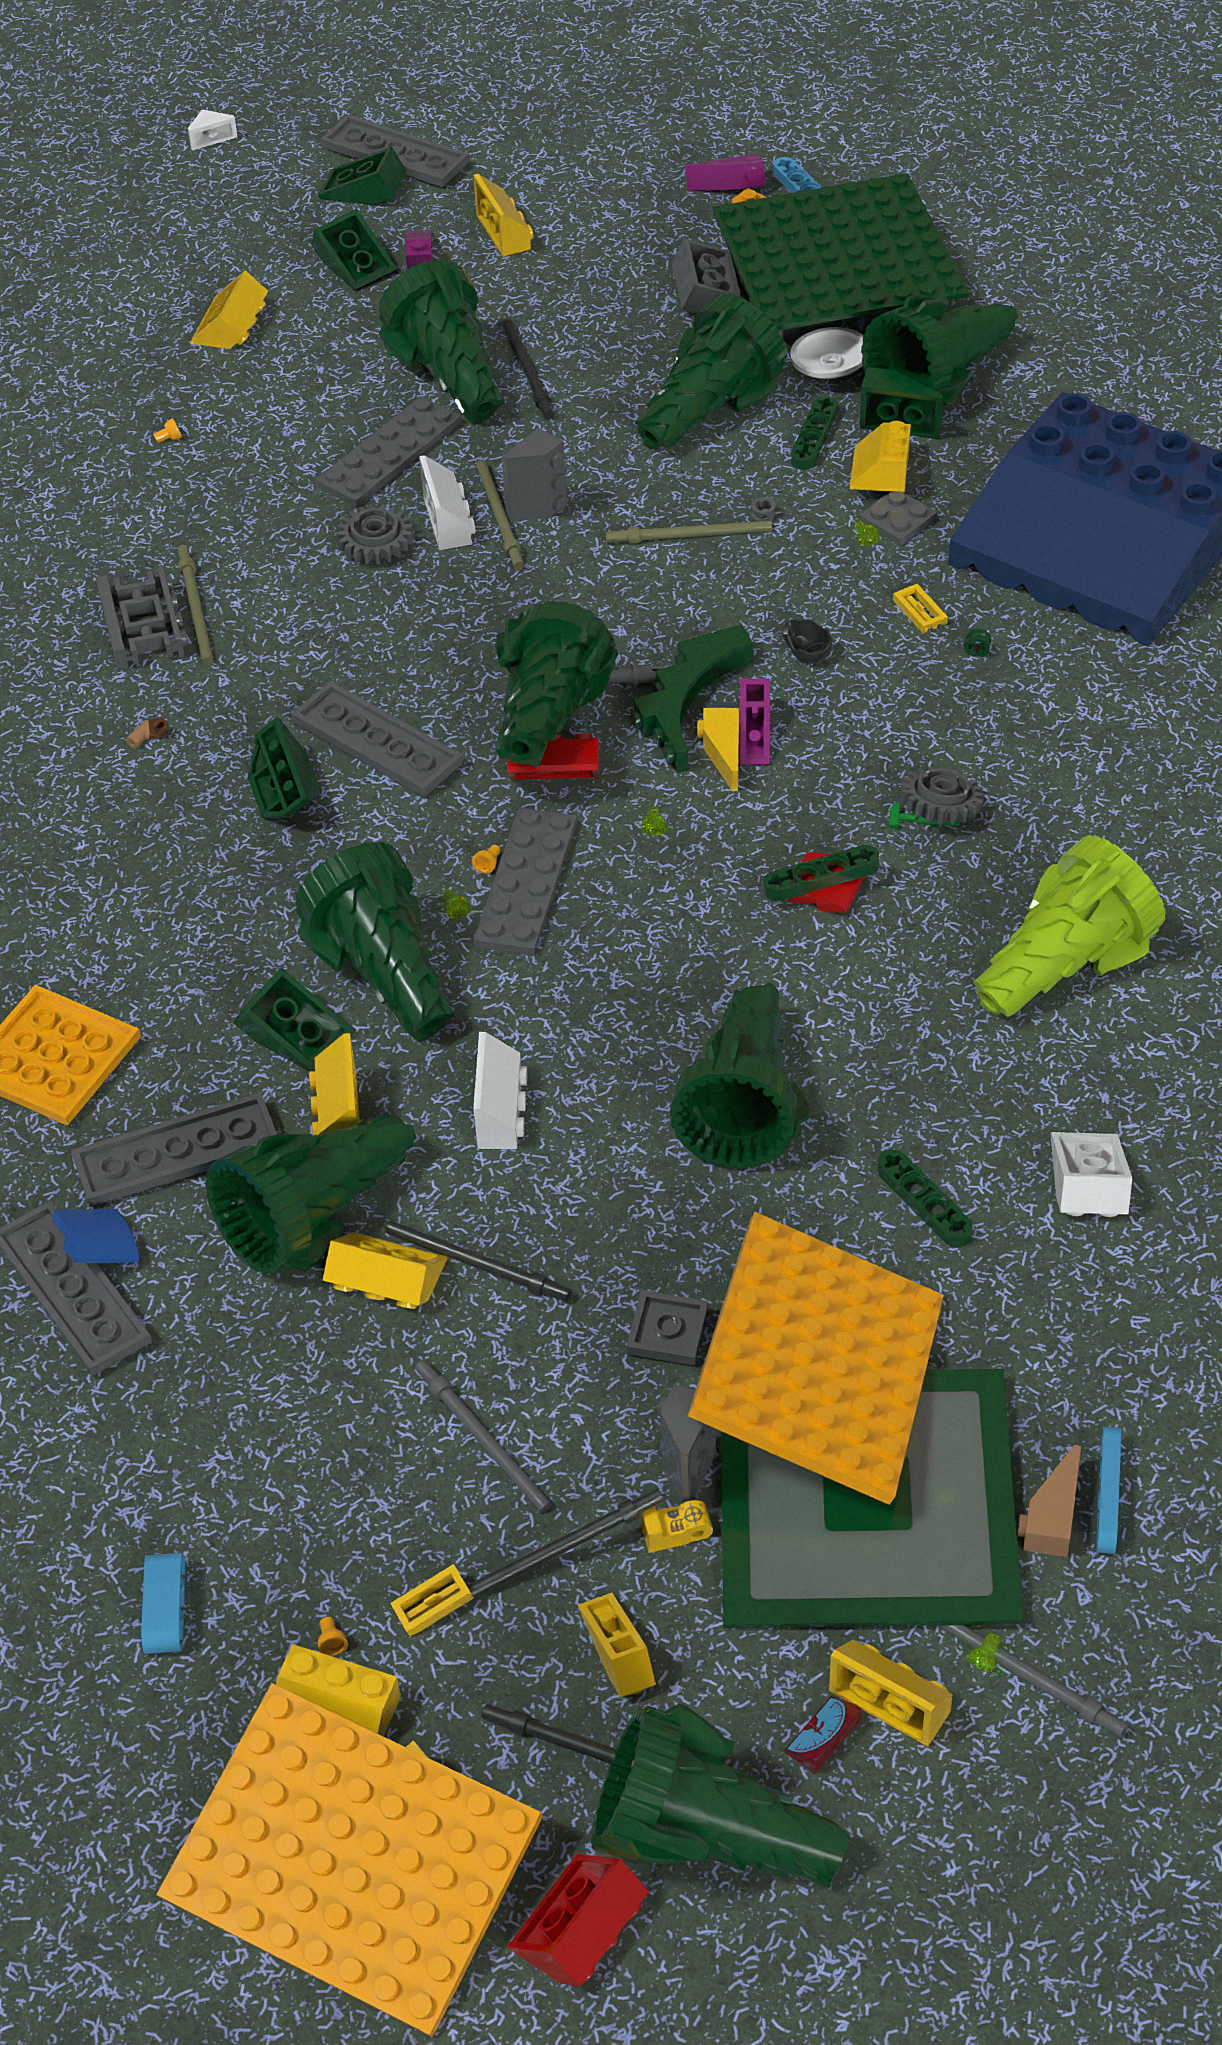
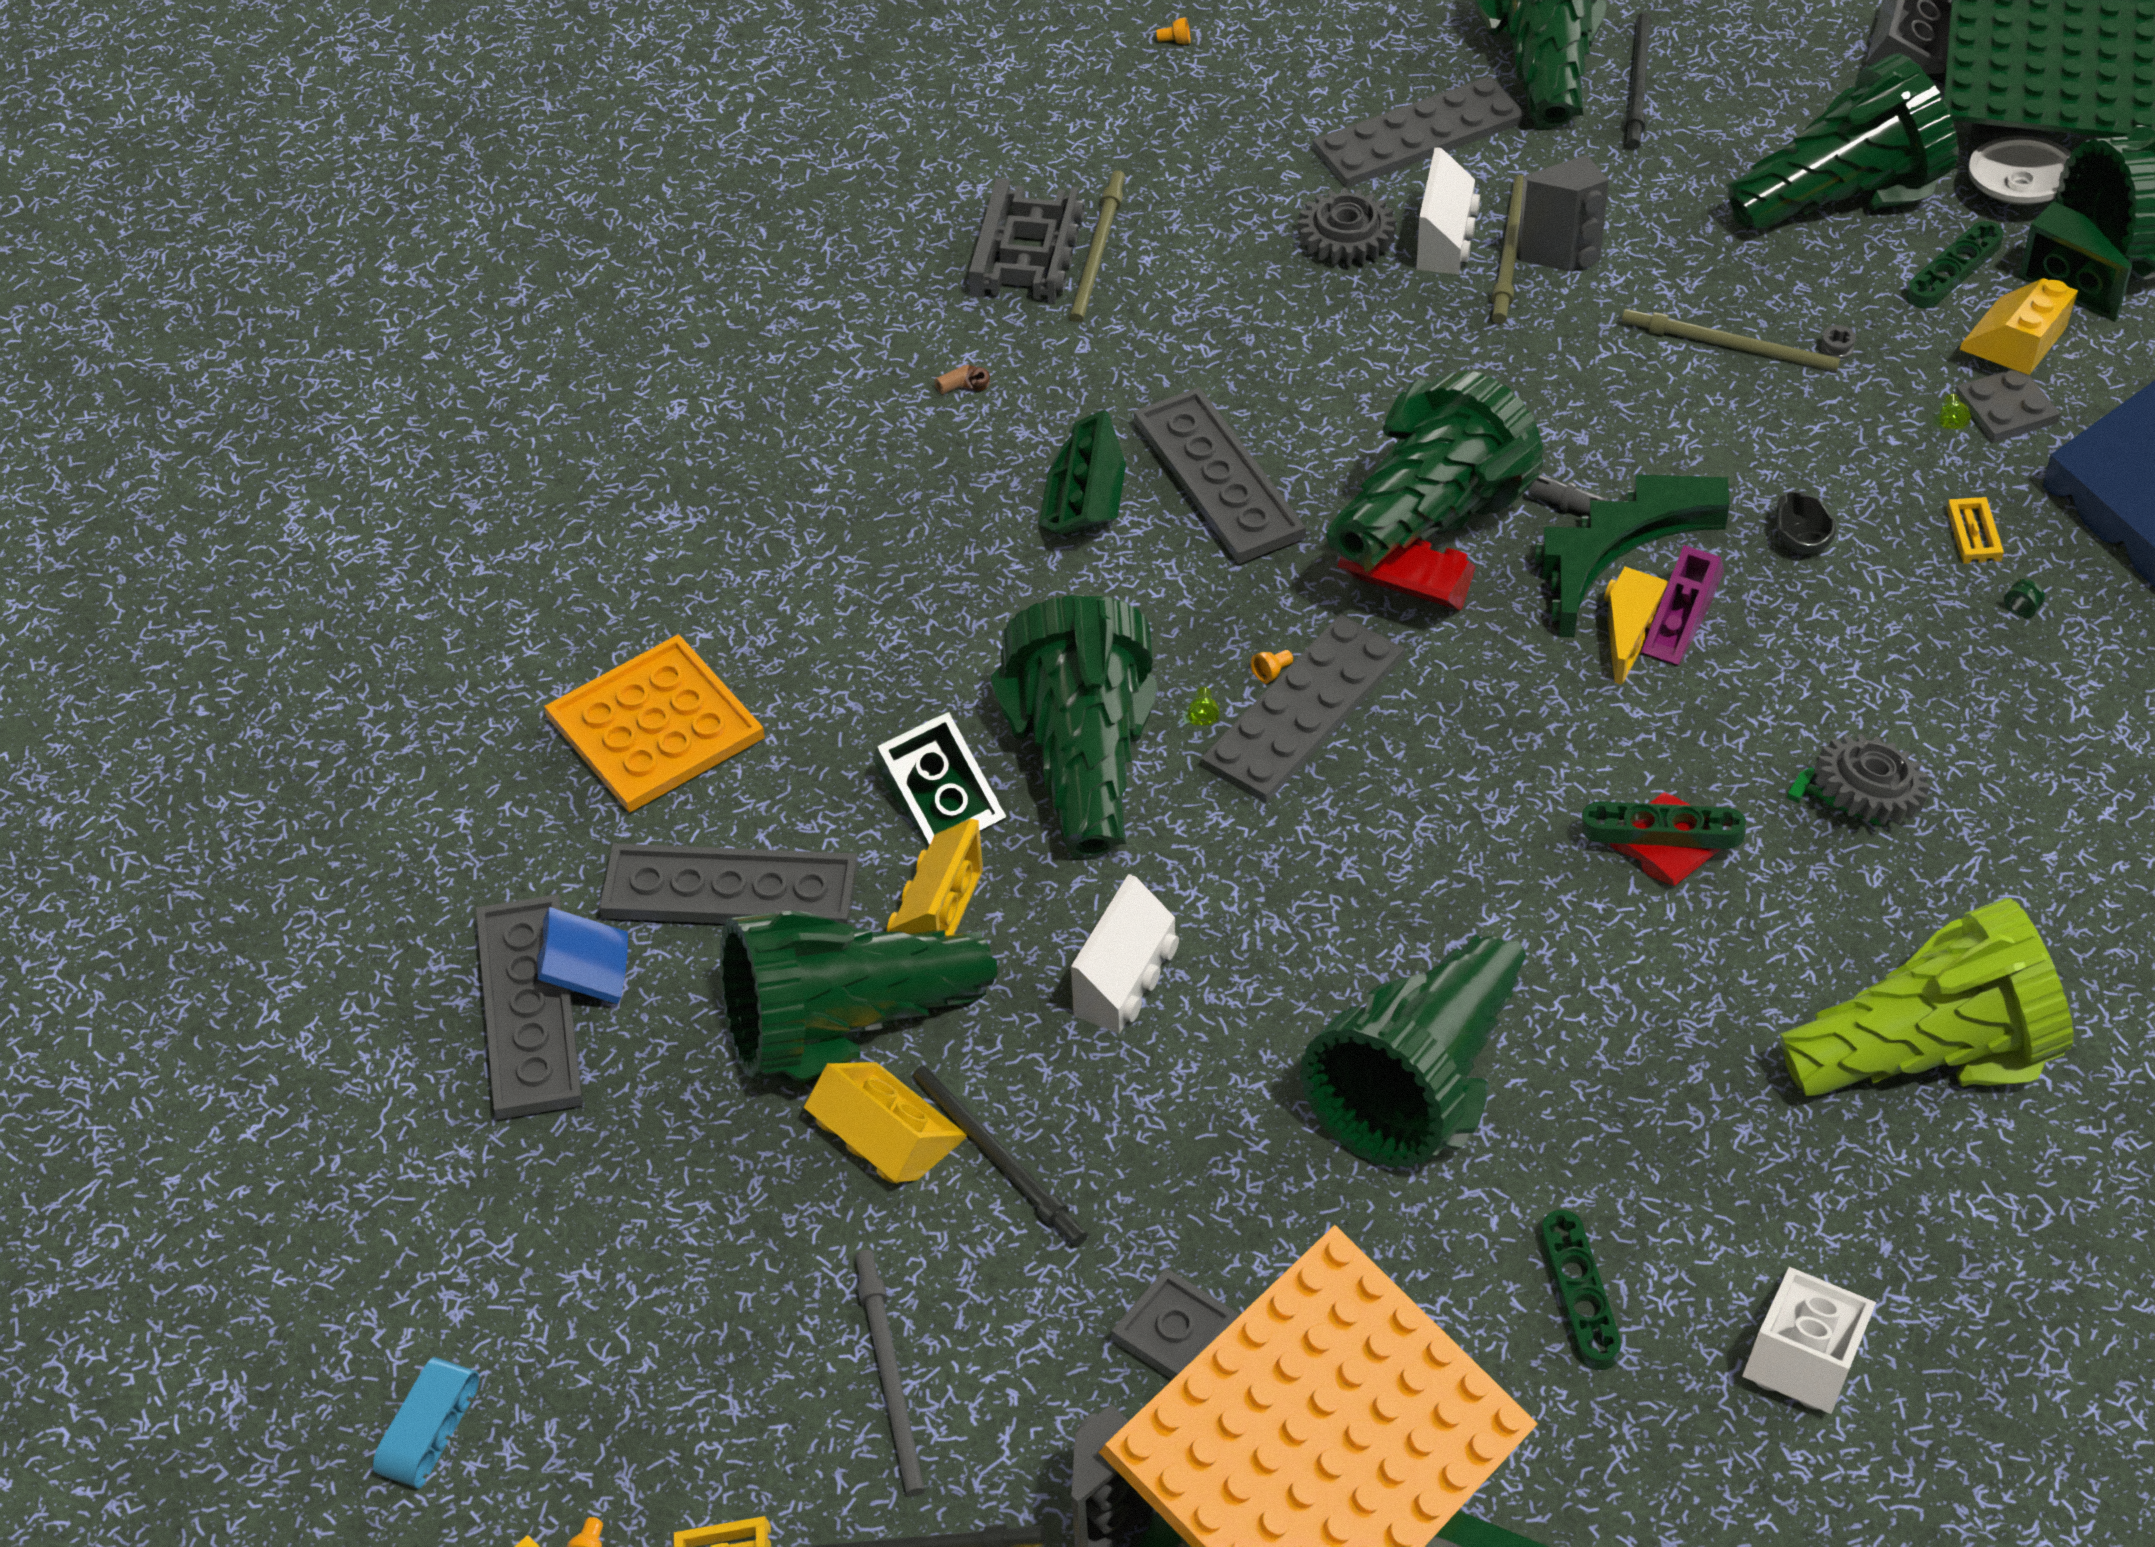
camera: 25 degrees right, 0 degrees up
(653, 822) = (1494, 688): clear neon green piece -> none

